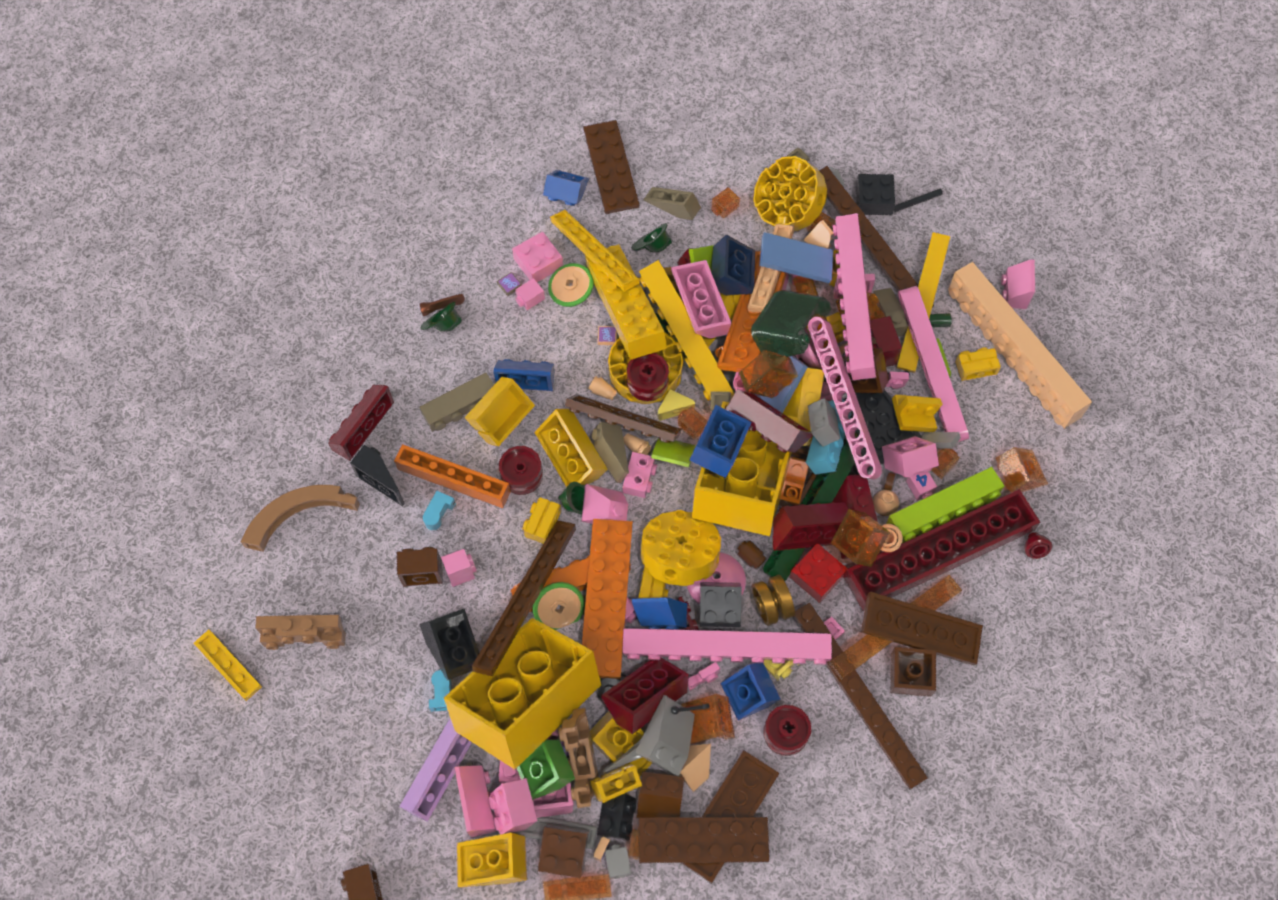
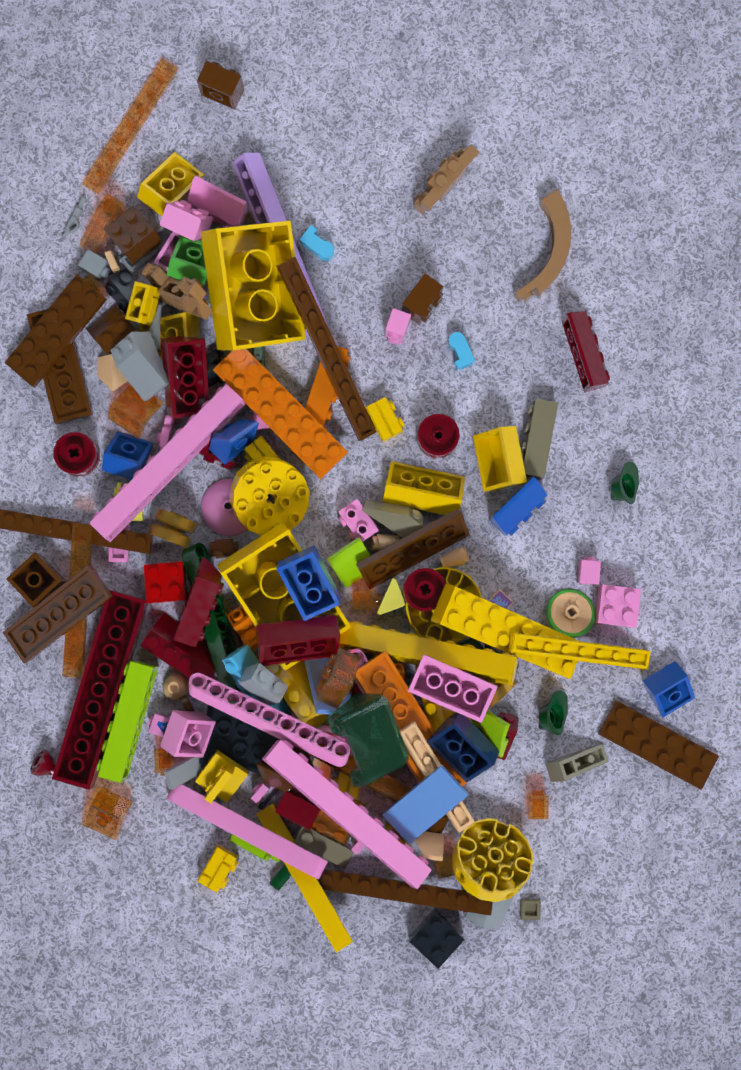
camera: 125 degrees right, 20 degrees up
(227, 665) = (468, 115): yellow plate -> none
(373, 471) = (528, 328): black slope -> none
(429, 307) = (646, 483): copper piece -> none
(451, 643) = (344, 277): black slope -> none
(452, 476) = (478, 381): orange brick -> none
(509, 283) = (614, 565): tile -> none
(559, 594) = (306, 375): light nougat wheel -> none
(573, 497) = (374, 460): dark green piece -> none
(603, 504) = (355, 474): bright pink slope -> none
(675, 710) = (151, 382): black hinge -> none
(718, 397) = (358, 630): dark tan tile -> none
(720, 604) = (203, 488): brick -> none
(860, 537) = (155, 628): clear orange brick -> none
(893, 540) = (138, 650): light nougat brick -> none
(914, 201) = (402, 972): black bar -> none
(1018, 346) = (202, 913): light nougat brick -> none
(1019, 284) = (251, 970): bright pink slope -> none

